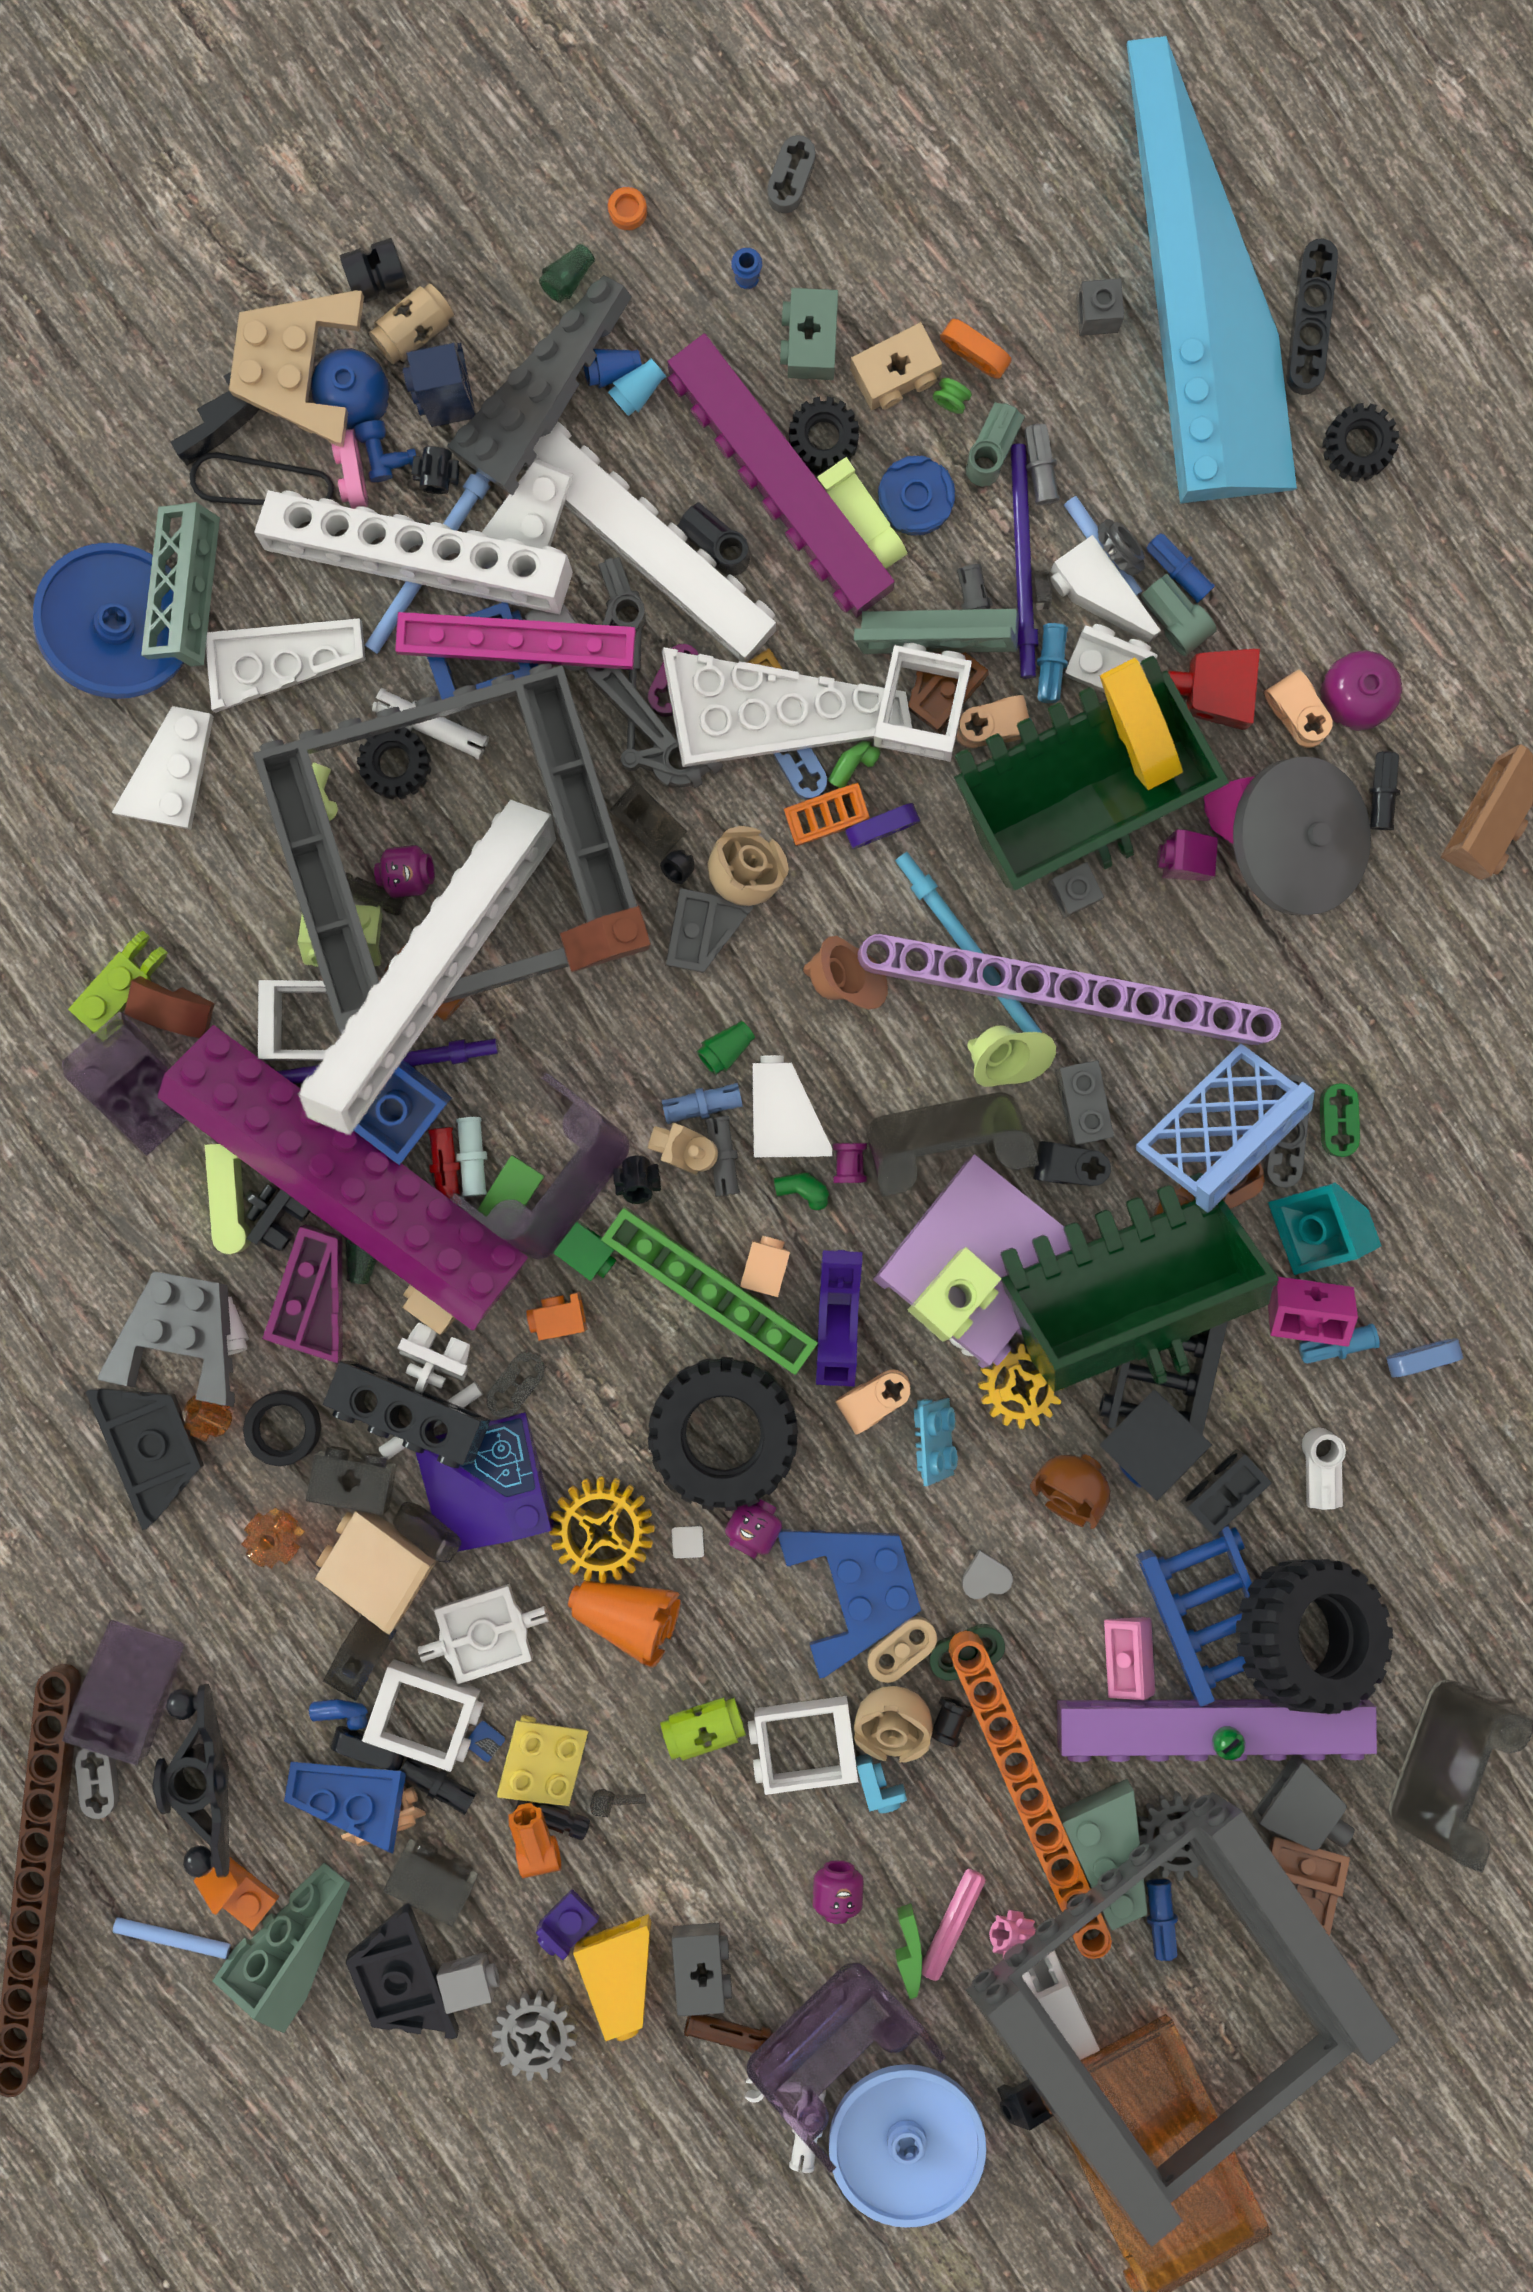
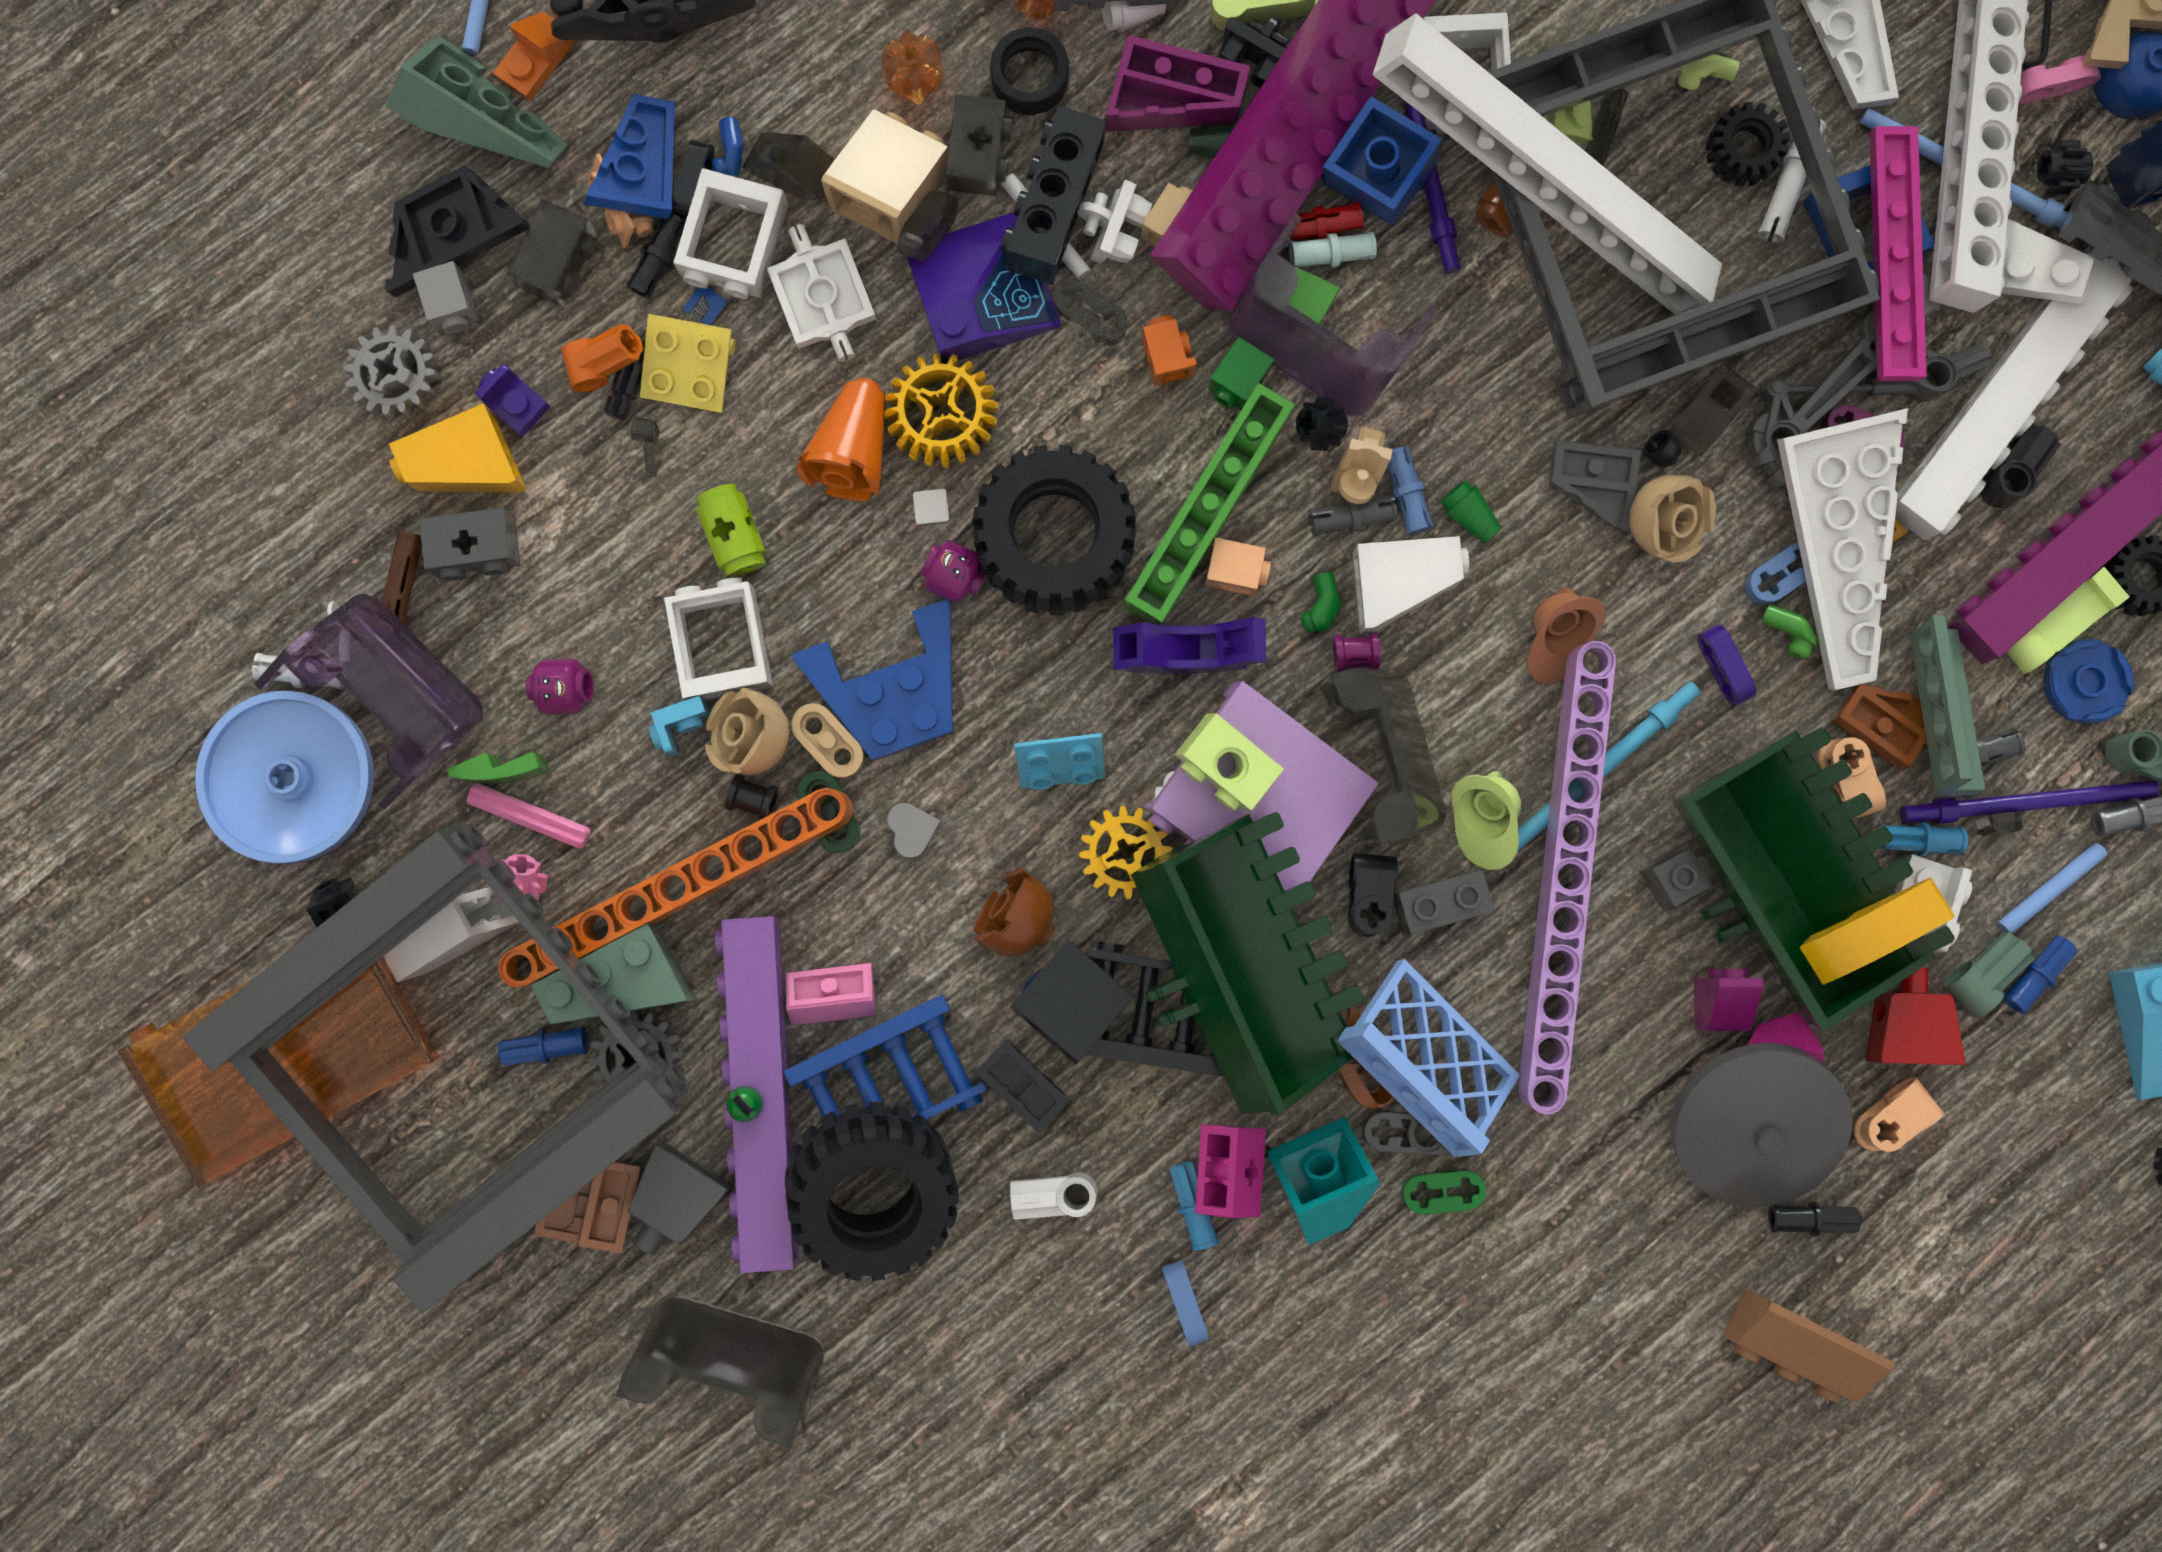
camera: 85 degrees right, 5 degrees down
(381, 464) = (2096, 100): blue piece -> none
(405, 871) = (1634, 158): magenta head -> none
(605, 939) = (1592, 358): copper slope -> none
(822, 801) = (1752, 610): orange slope -> none
(868, 1404) = (1094, 689): light nougat piece -> none
(913, 740) = (1829, 690): white window -> none
(1098, 587) = (2008, 886): white slope -> none
(1121, 546) = (2060, 905): dark grey gear -> none
(1361, 690) = (1924, 1186): magenta cylinder -> none

